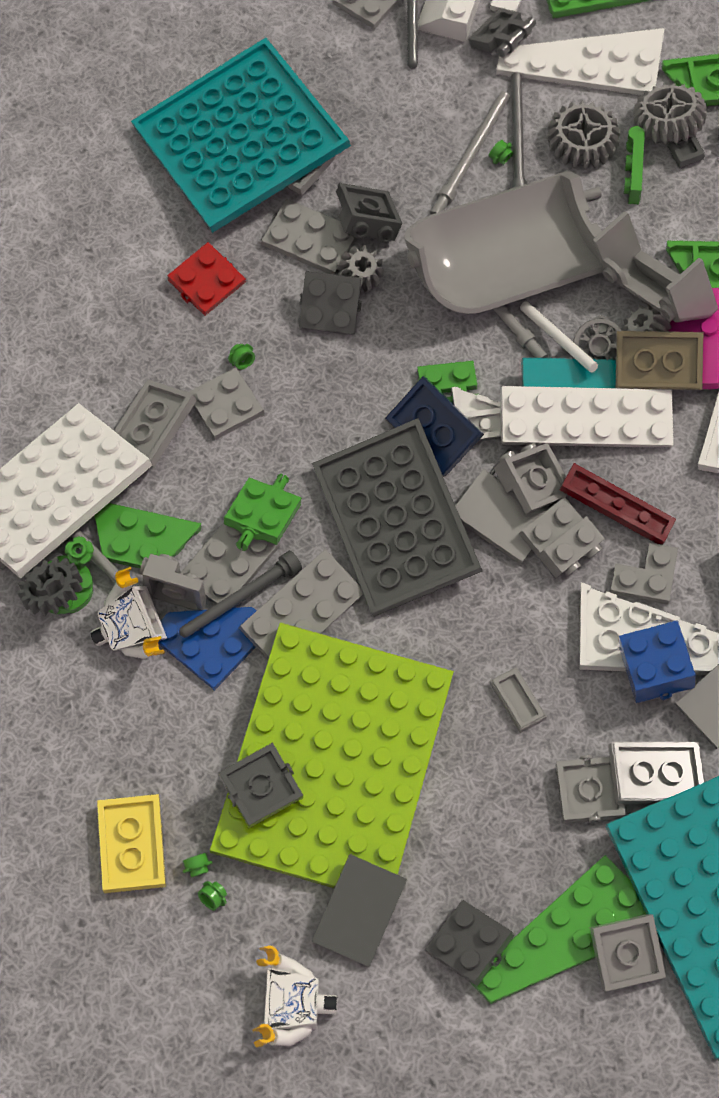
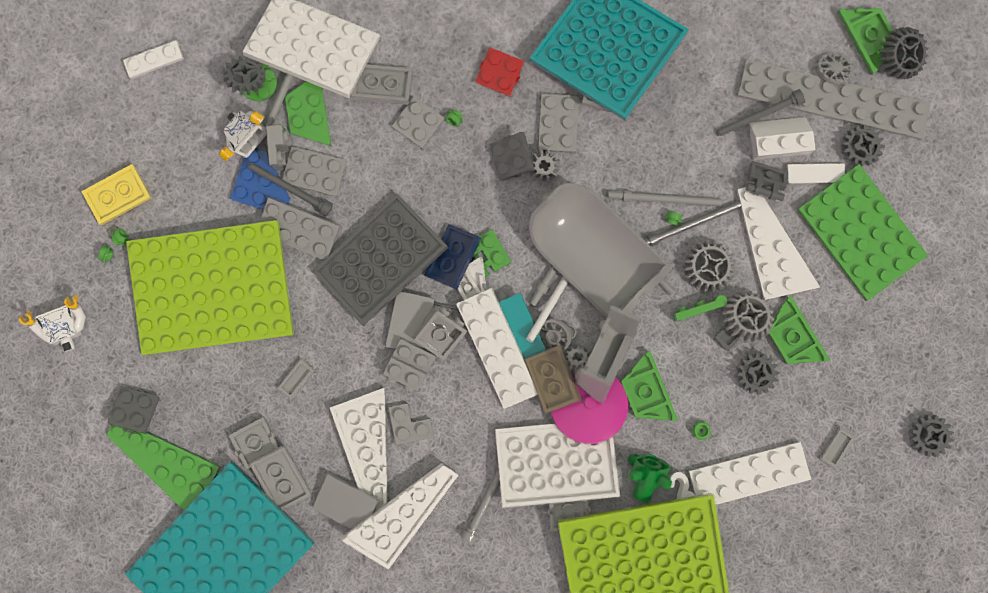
camera: 65 degrees right, 20 degrees up
(86, 551) = (281, 81): bright green plate -> none
(260, 785) = (168, 253): dark grey plate -> none
(262, 511) = (350, 177): bright green plate -> none
(359, 910) = (126, 340): dark grey tile -> none
(368, 213) = (587, 152): dark grey plate -> none
(617, 504) = (445, 390): dark red plate -> none
(627, 952) = (162, 502): light grey plate -> none
(657, 662) = (342, 454): blue brick -> none

